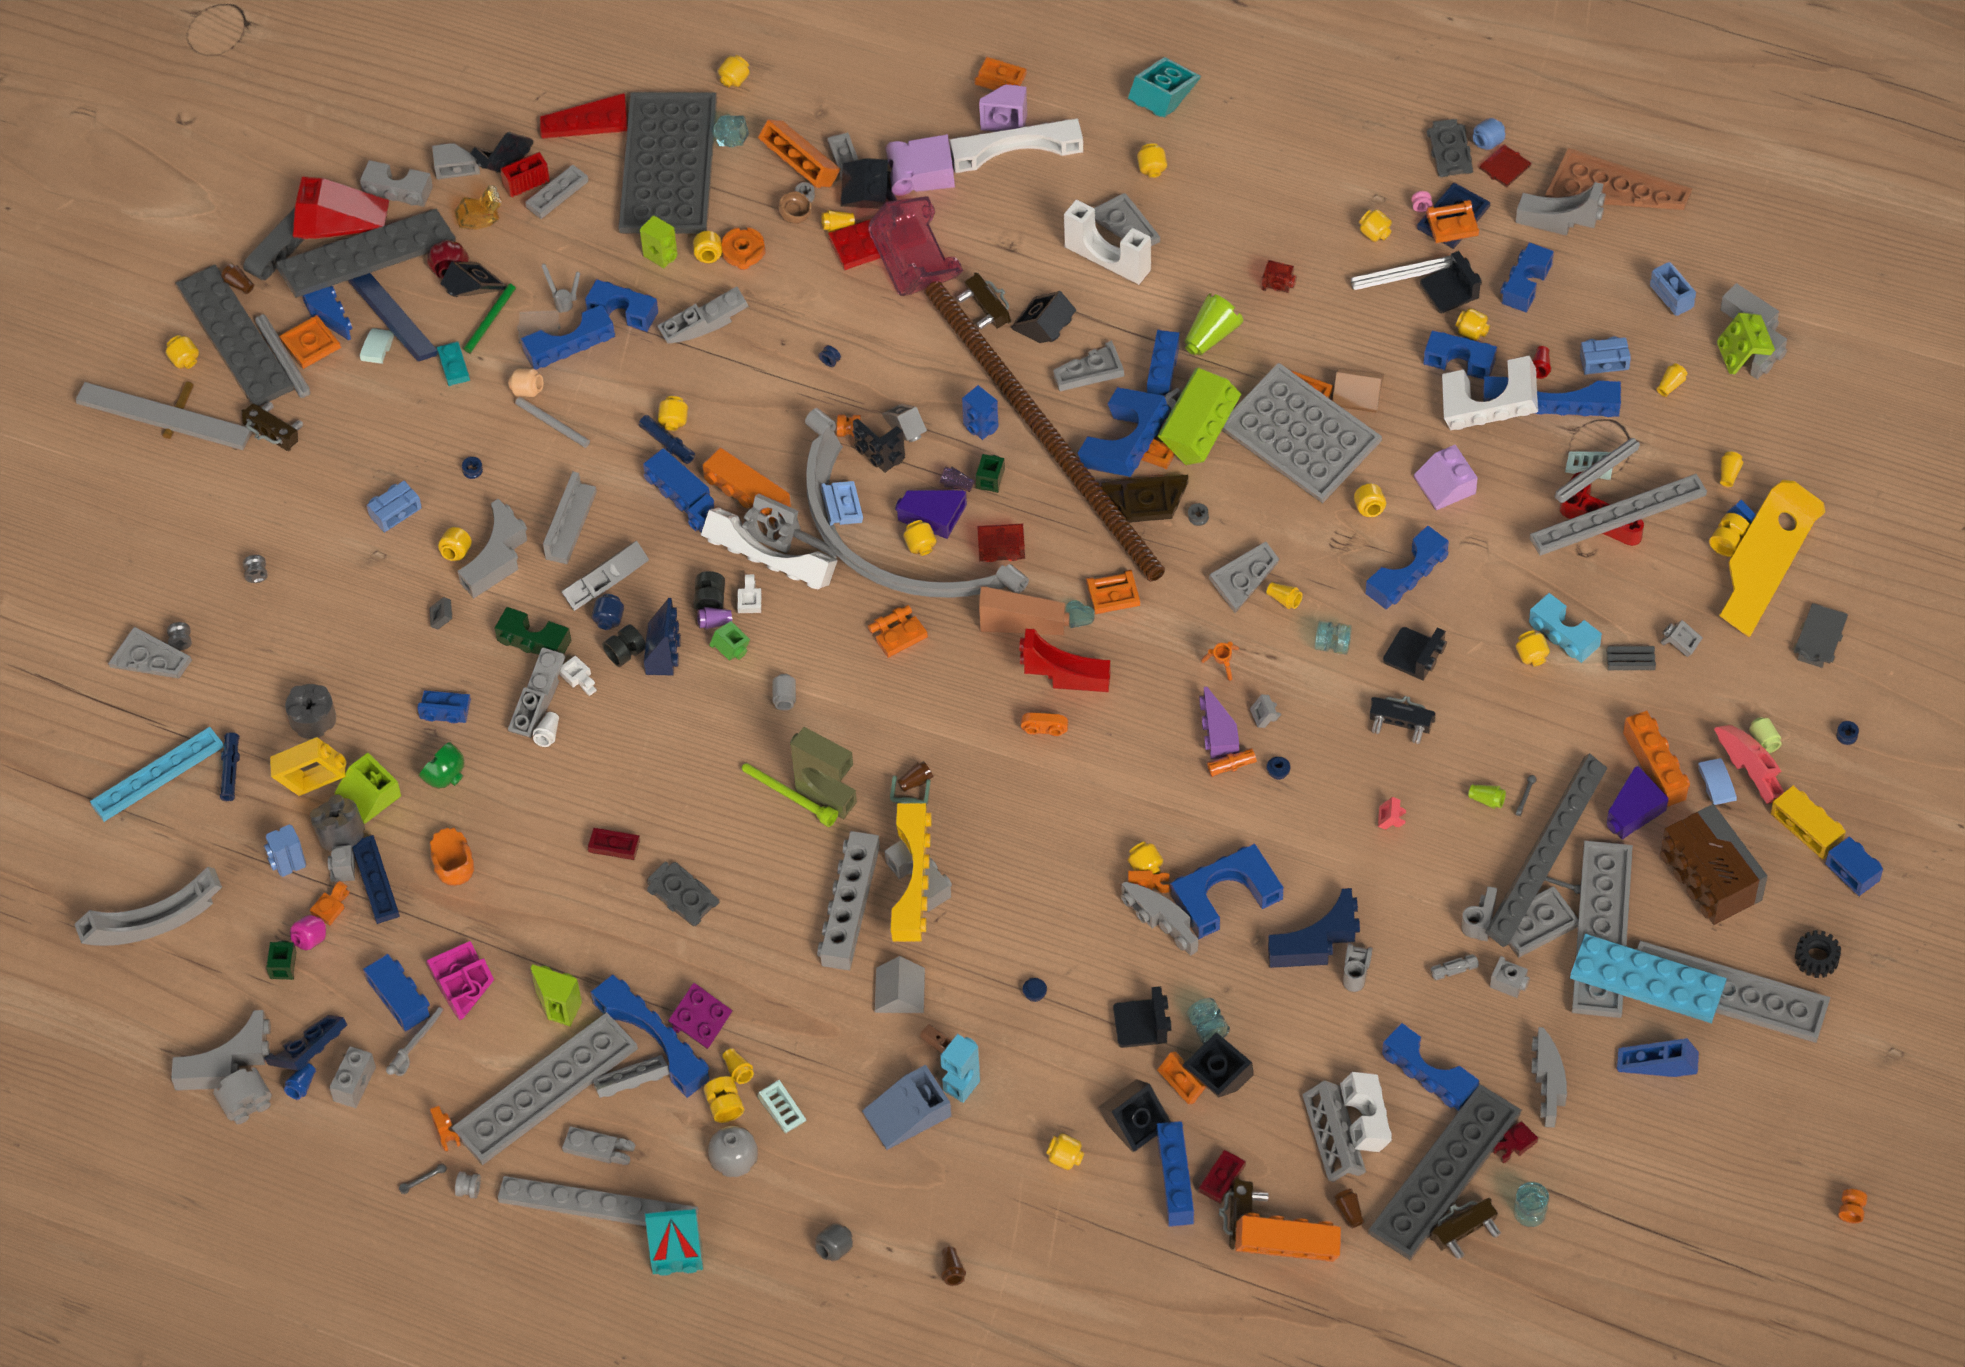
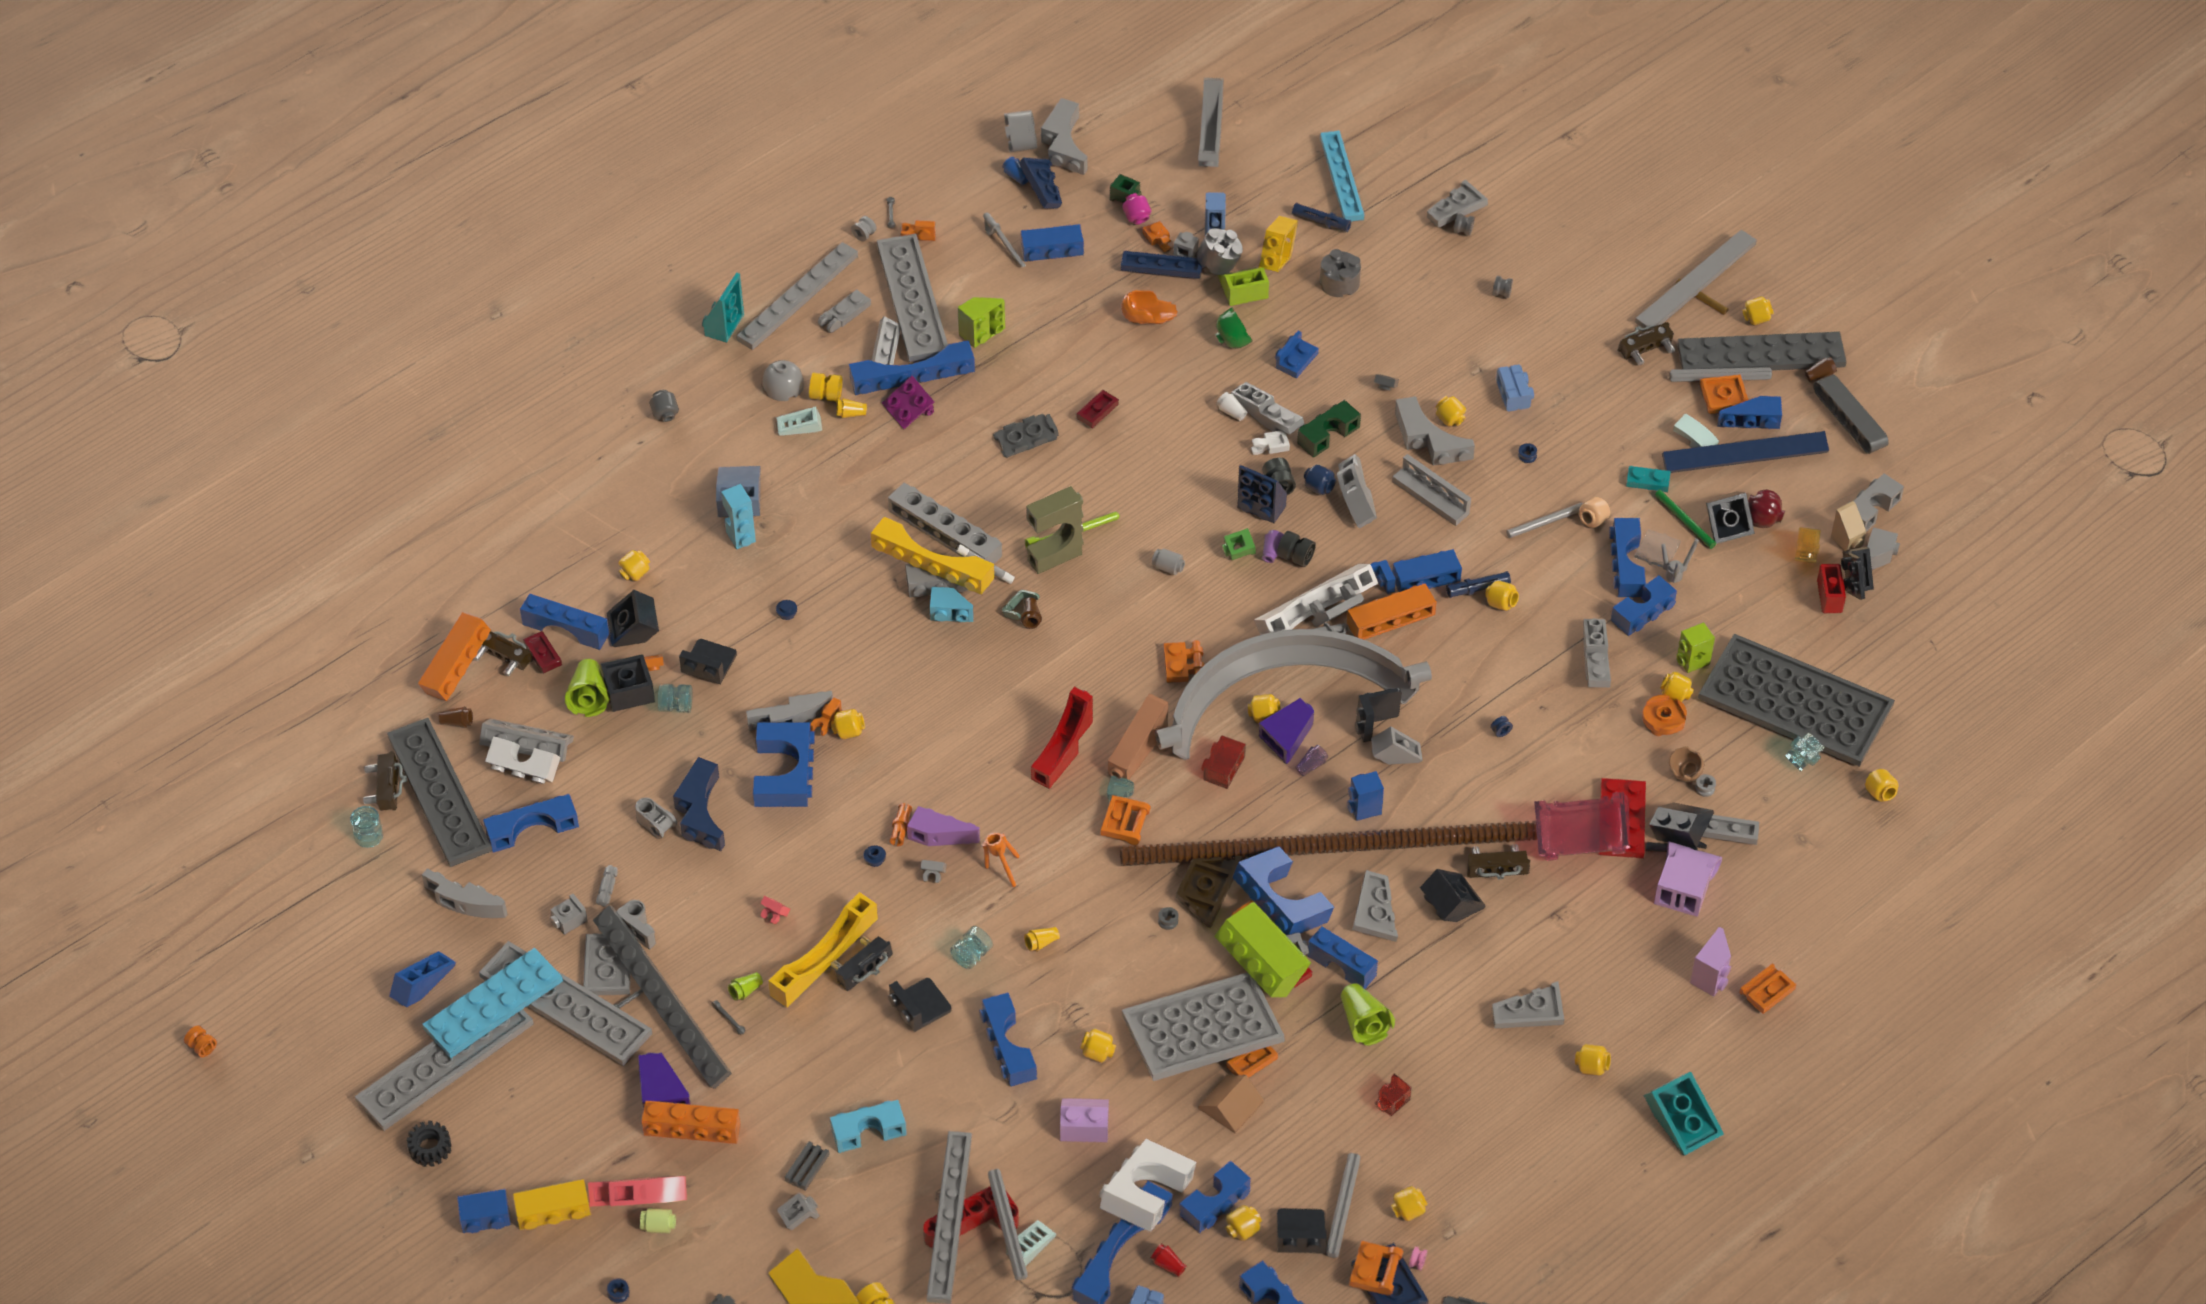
camera: 115 degrees right, 5 degrees down
(335, 210) = (1861, 448): red wedge -> none
(352, 1077) = (996, 195): light grey brick -> none
(364, 253) = (1798, 454): dark grey plate -> none
(443, 187) = (1848, 527): none -> tan slope
(460, 977) = (1042, 285): dark pink slope -> none
(556, 191) = (1804, 609): light grey plate -> none
(591, 118) = (1883, 665): red wing -> none
(749, 598) = (1277, 575): white plate -> none
(799, 153) = (1749, 790): orange brick -> none
(836, 220) = (1657, 792): yellow cone -> none
(842, 503) = (1335, 671): light blue plate -> none
(845, 424) = (1415, 708): orange wheel -> none
(883, 835) = (997, 571): none -> bar
(899, 987) = (846, 530): light grey slope -> none
(935, 1038) = (779, 535): nougat bar -> none
(949, 849) = (949, 605): none -> medium azure slope
(952, 1268) = (593, 464): reddish brown cone -> none
(990, 472) = (1303, 784): dark green brick -> none
(1044, 723) = (1025, 711): orange plate -> none
(1058, 137) = (1662, 998): white arch -> none
(1081, 236) = (1477, 980): white arch -> none
(1242, 1104) = (587, 690): none -> lime cone
(1243, 575) = (1080, 917): light grey wing -> none
(1456, 754) = (797, 976): none -> yellow arch
(1516, 1140) = (430, 853): dark red plate -> none
(1532, 648) = (863, 1090): yellow head -> none
(1713, 864) = (557, 1101): reddish brown piece -> none
(1717, 780) = (639, 1159): light blue slope -> none

